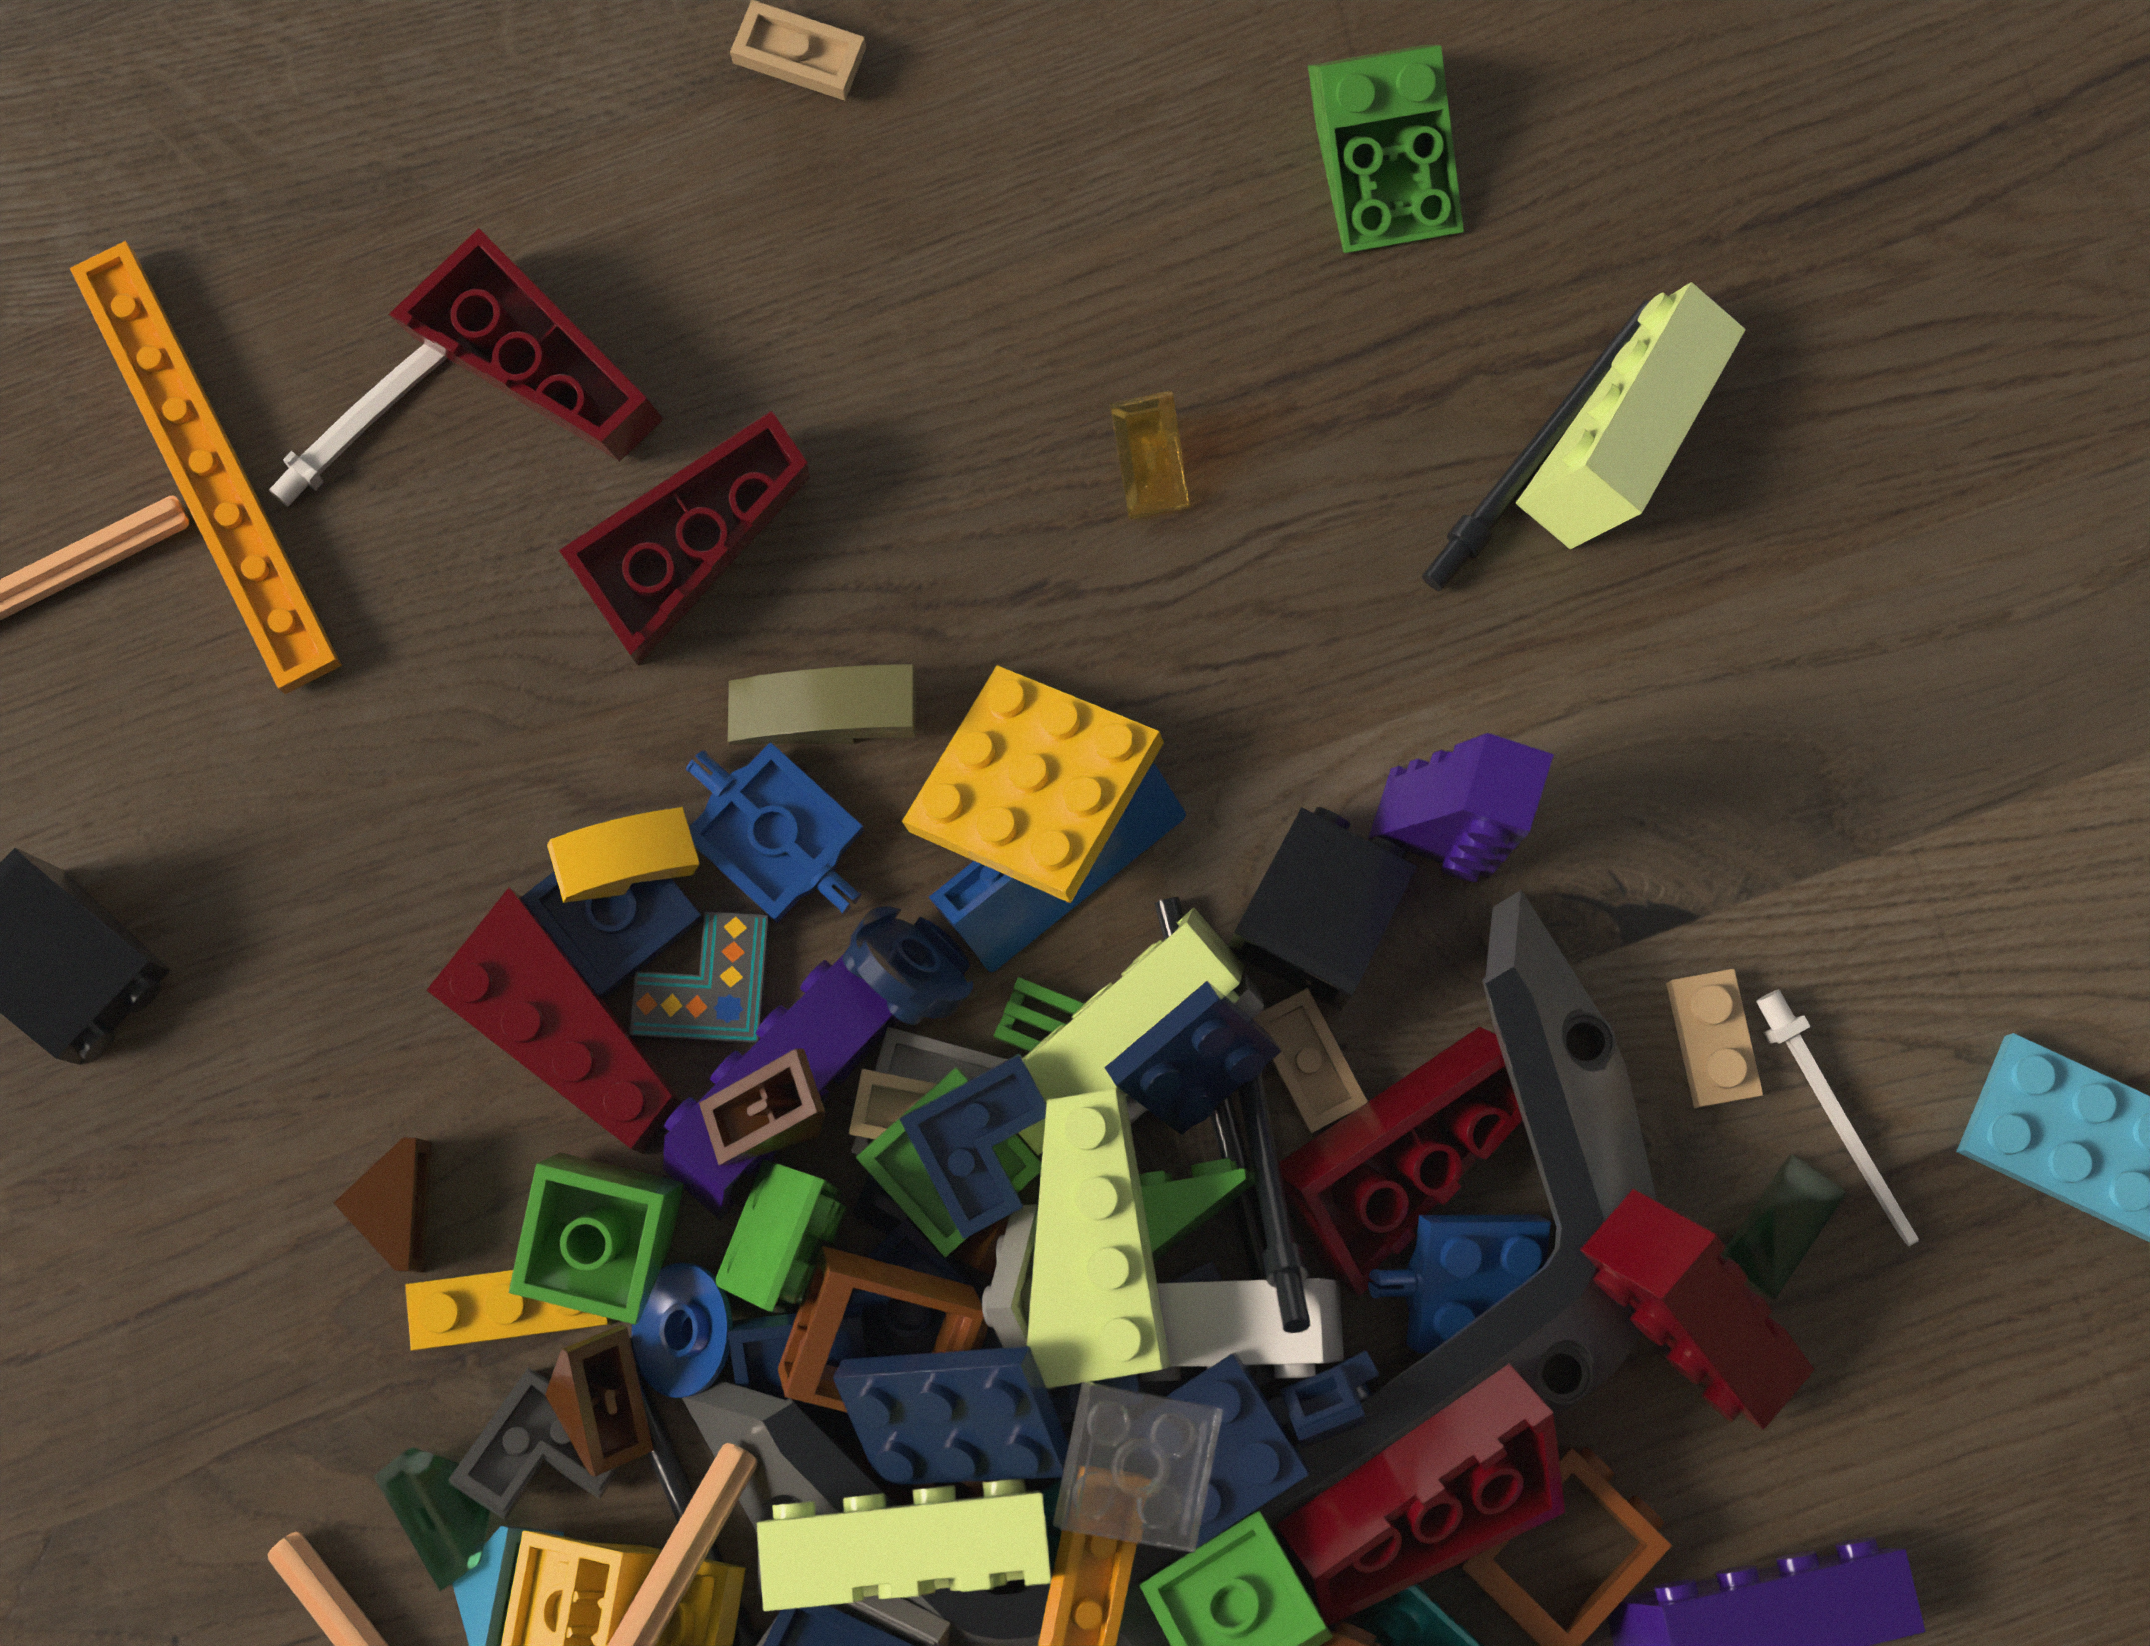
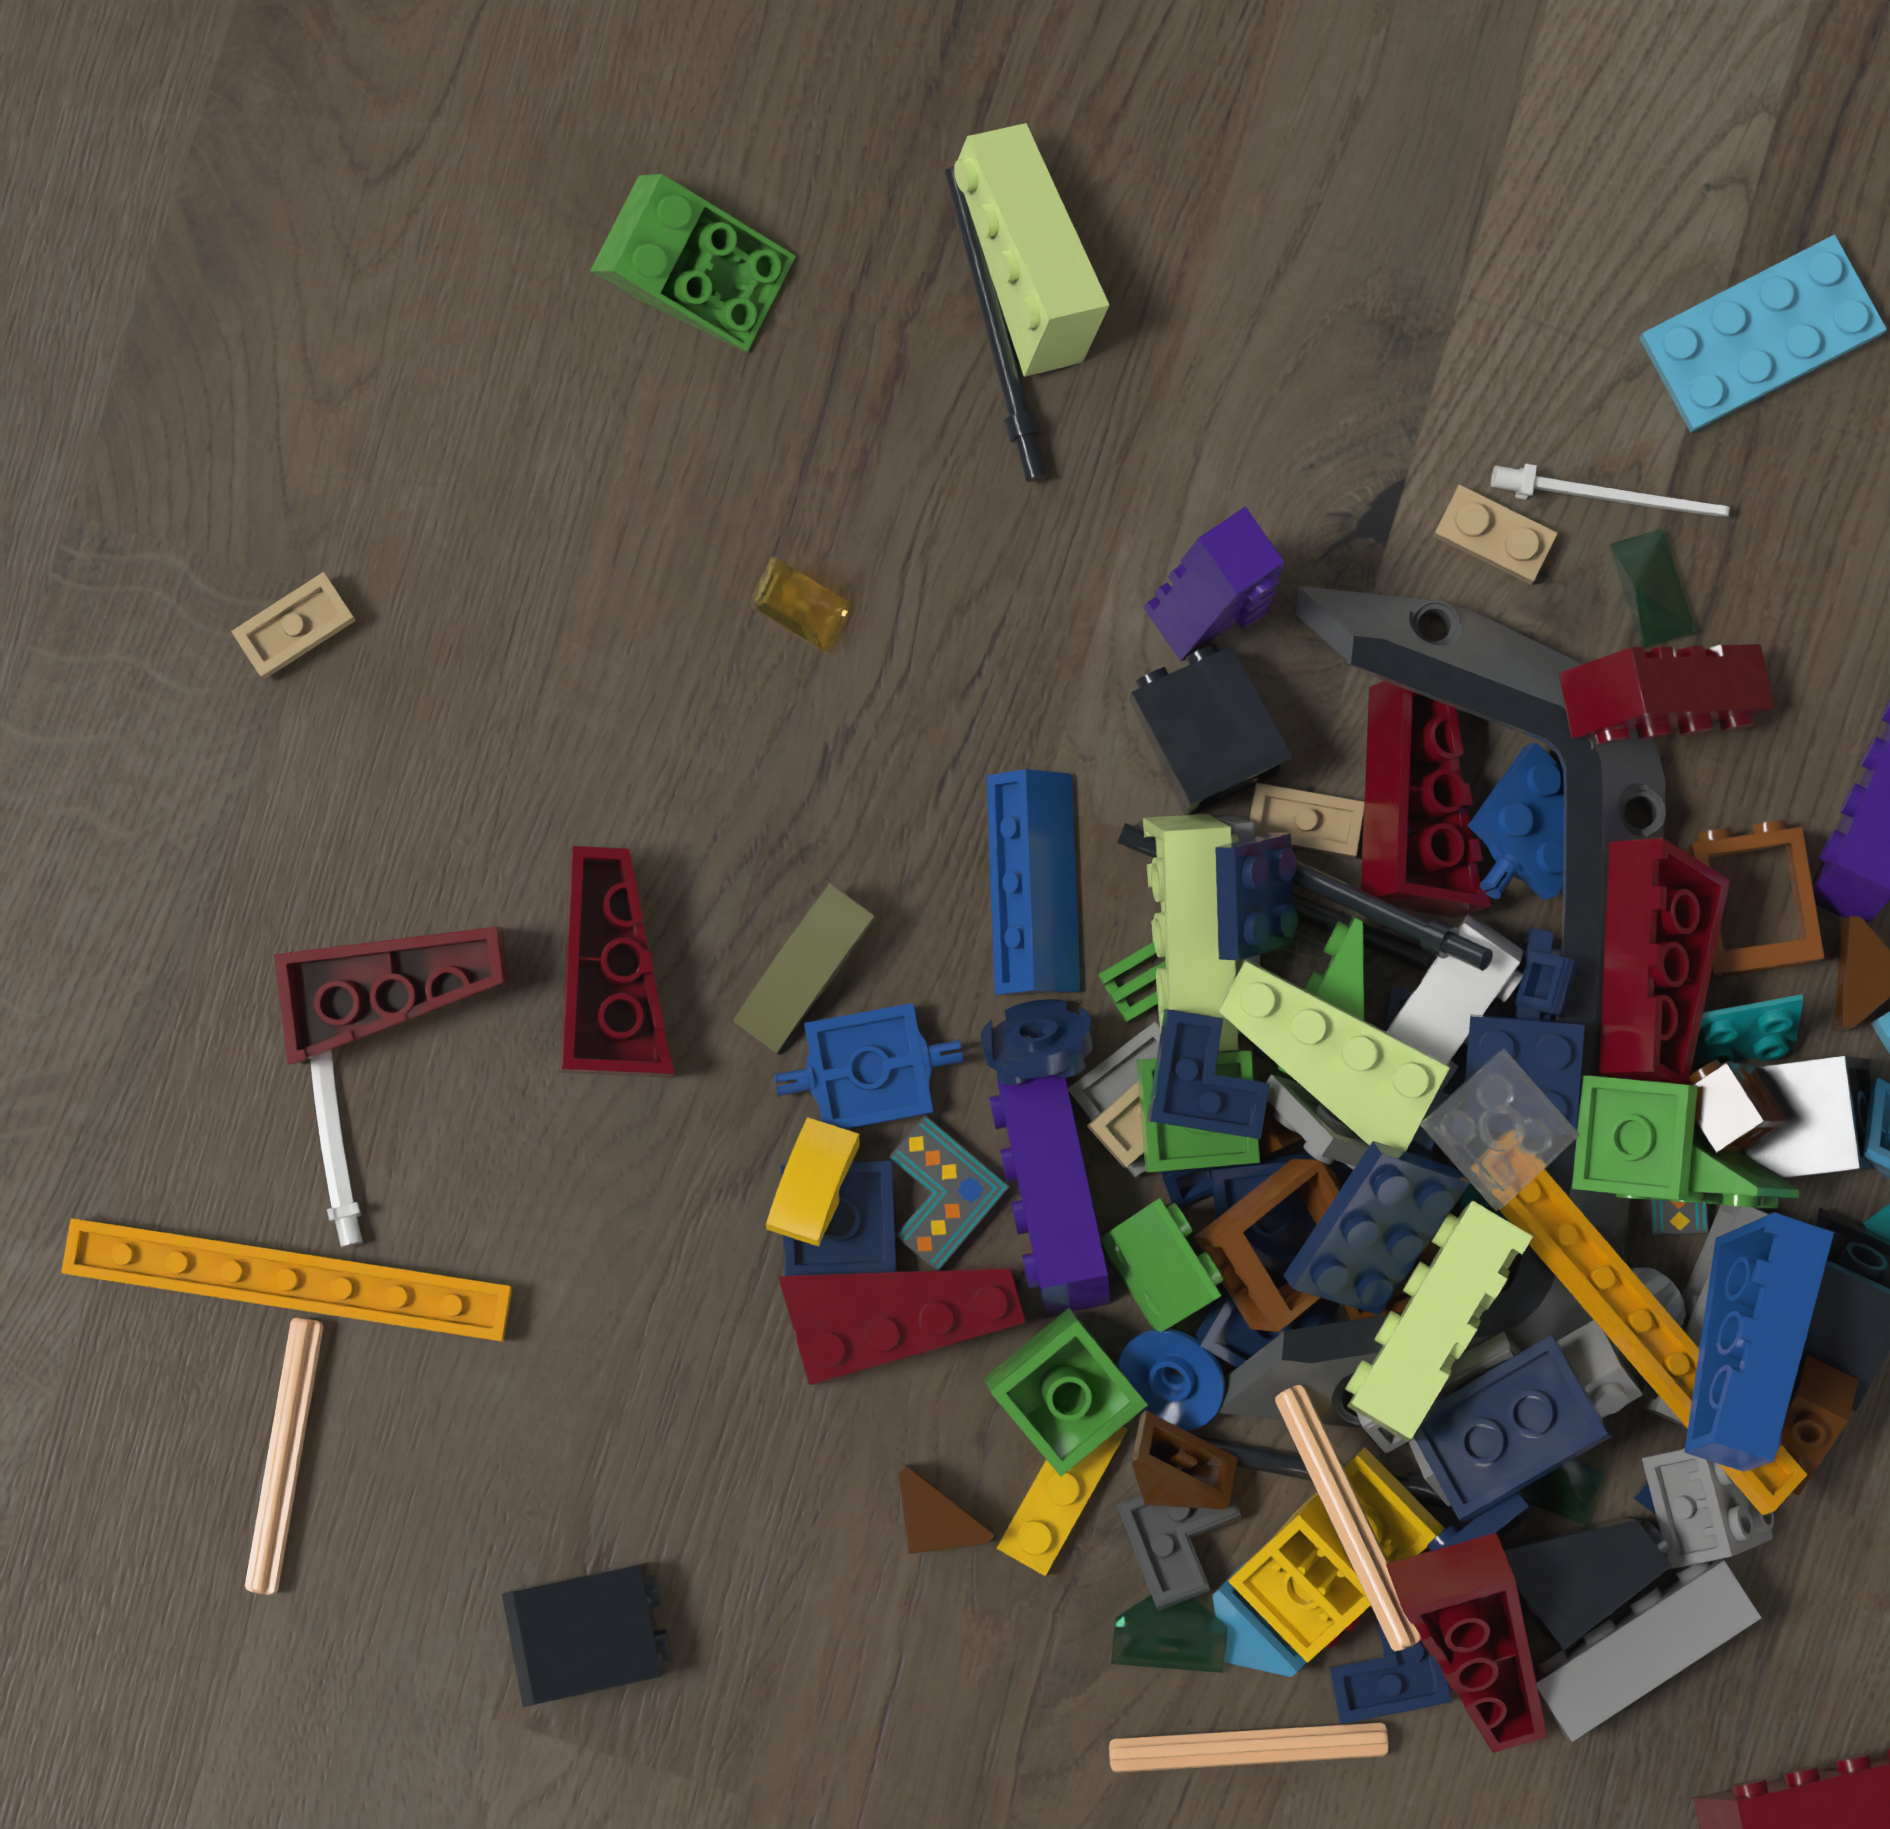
camera: 50 degrees left, 5 degrees up
(765, 1110) = (1076, 1207): reddish brown slope -> none
(1033, 783) = (973, 862): yellow plate -> none

